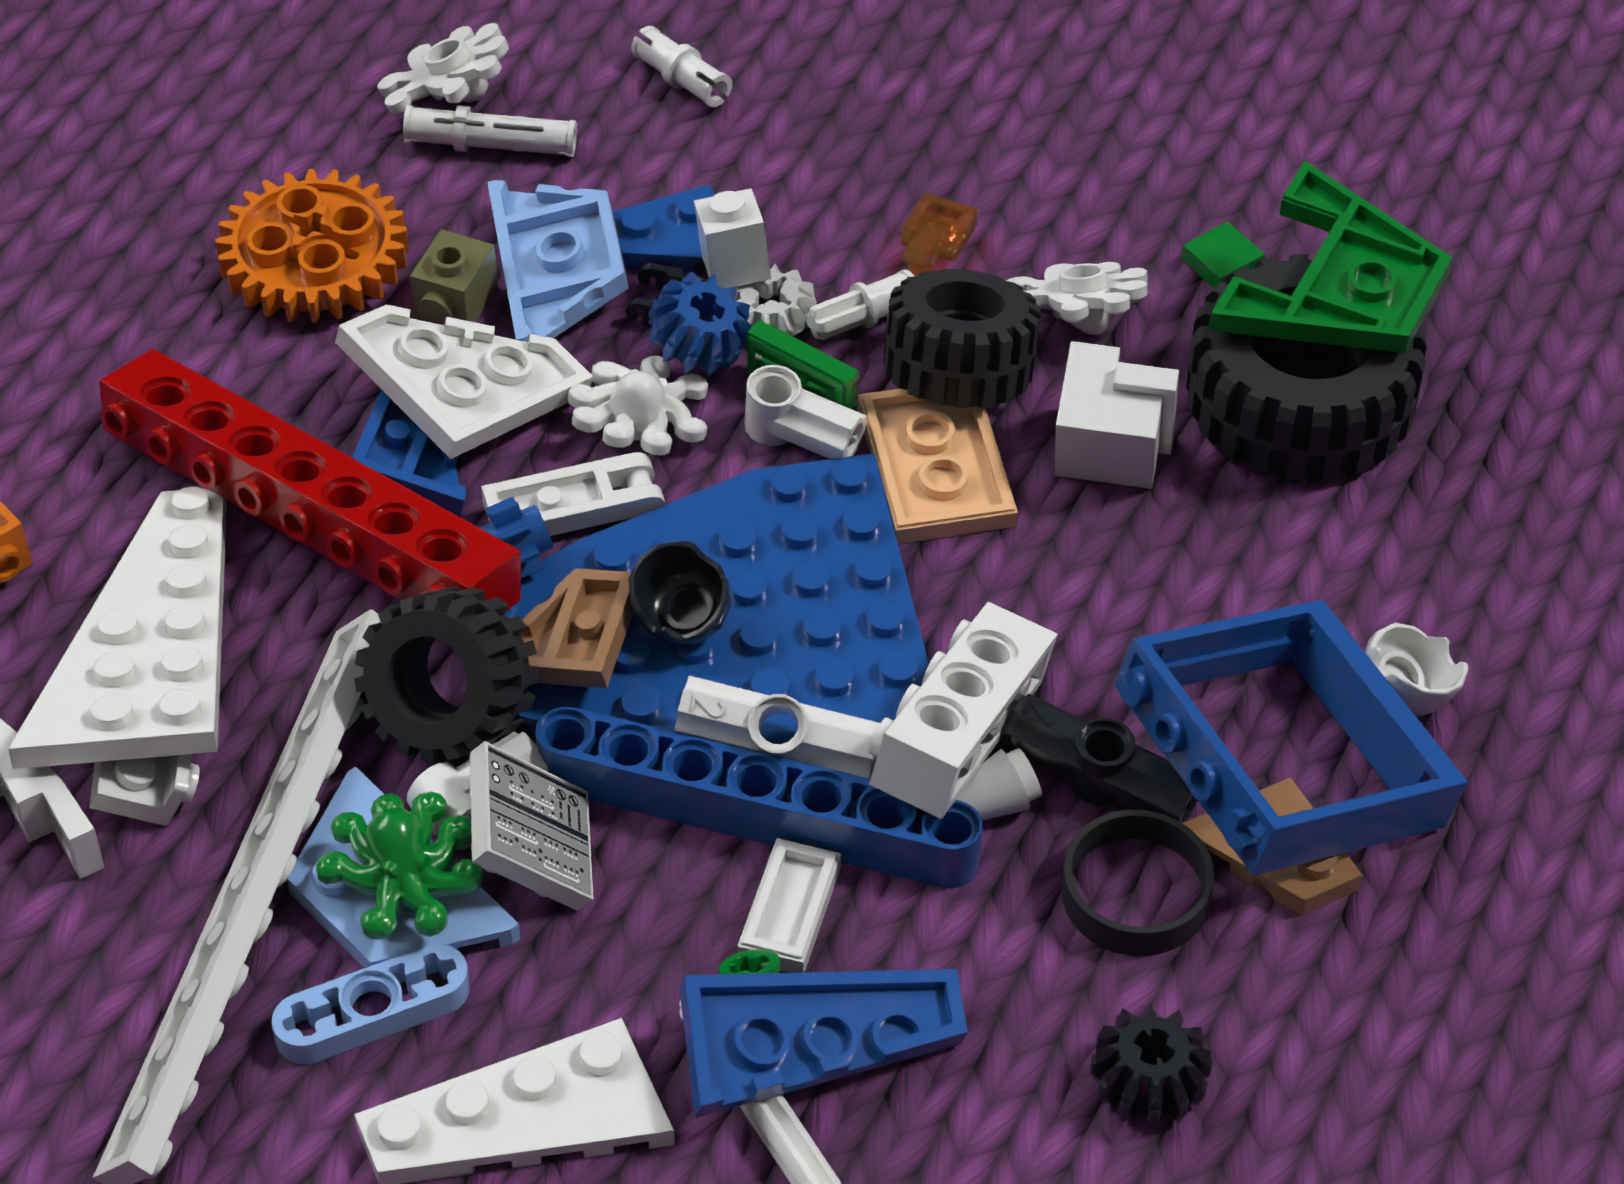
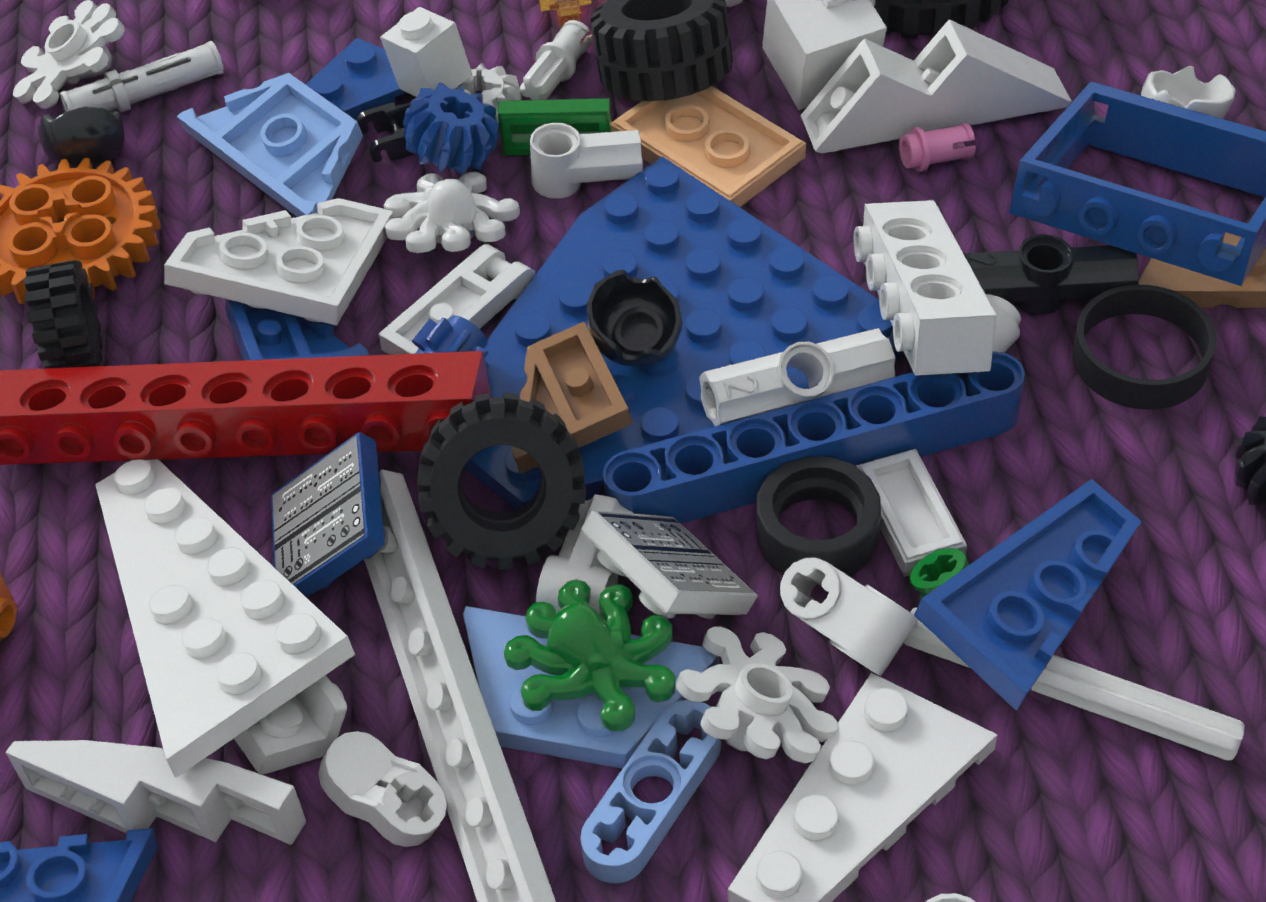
camera: 30 degrees left, 0 degrees up
(176, 905) = (382, 789): none -> white piece
(239, 327) = (63, 315): none -> black tyre
(301, 628) = (329, 516): none -> tile
(391, 162) = (81, 135): none -> black hair
(454, 278) = (212, 193): olive brick -> none
(506, 978) = (759, 698): none -> white animal
(636, 954) = (852, 616): none -> white piece
(694, 822) = (818, 480): none -> black tyre
(1135, 583) = (922, 148): none -> bright pink pin
(1190, 529) = (949, 83): none -> white slope

